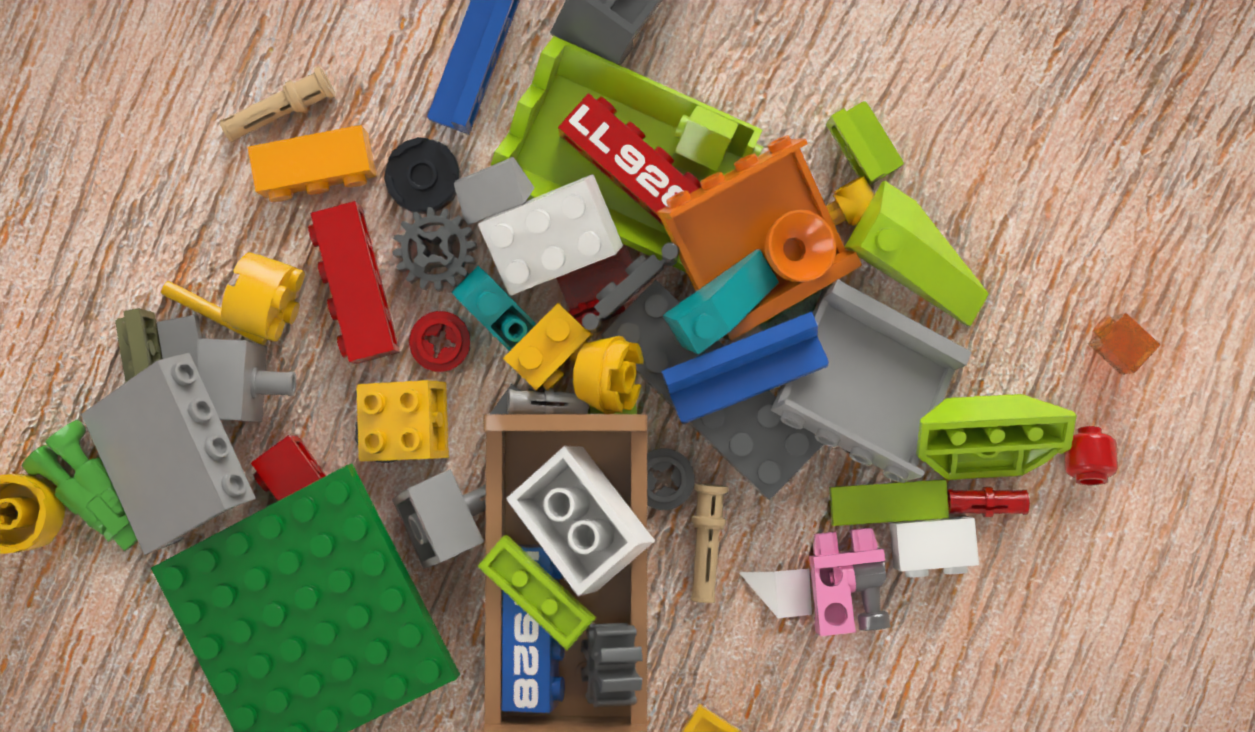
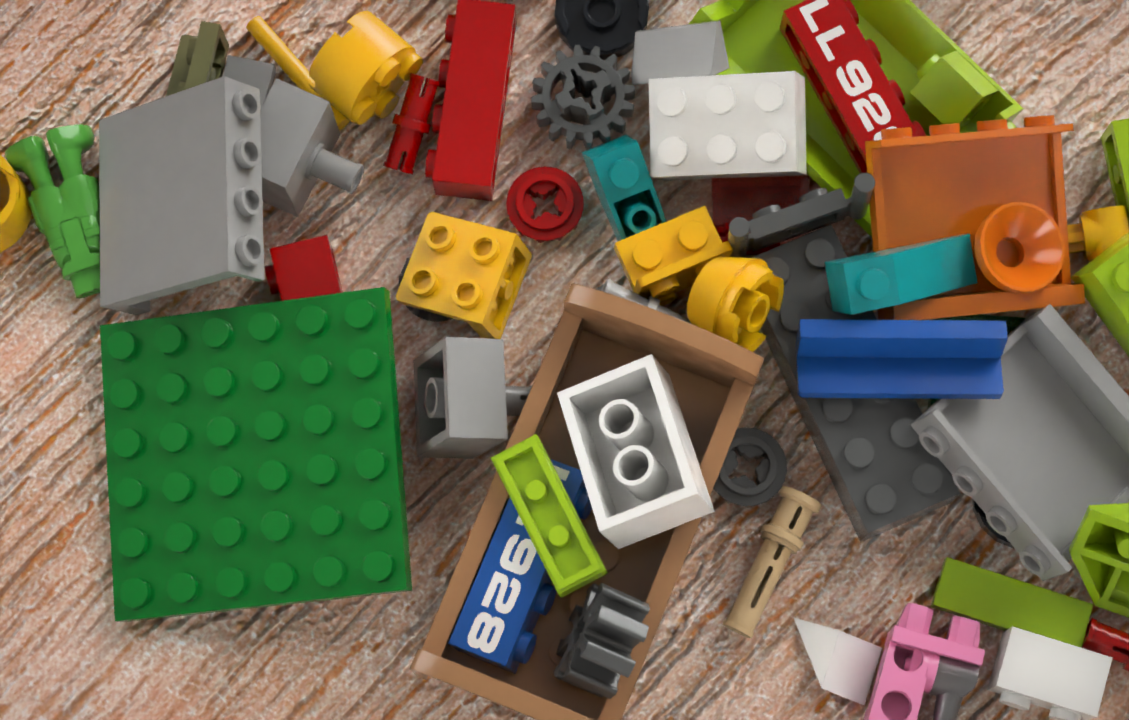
camera: 20 degrees right, 10 degrees down
(316, 321) = (411, 123): none -> red pin

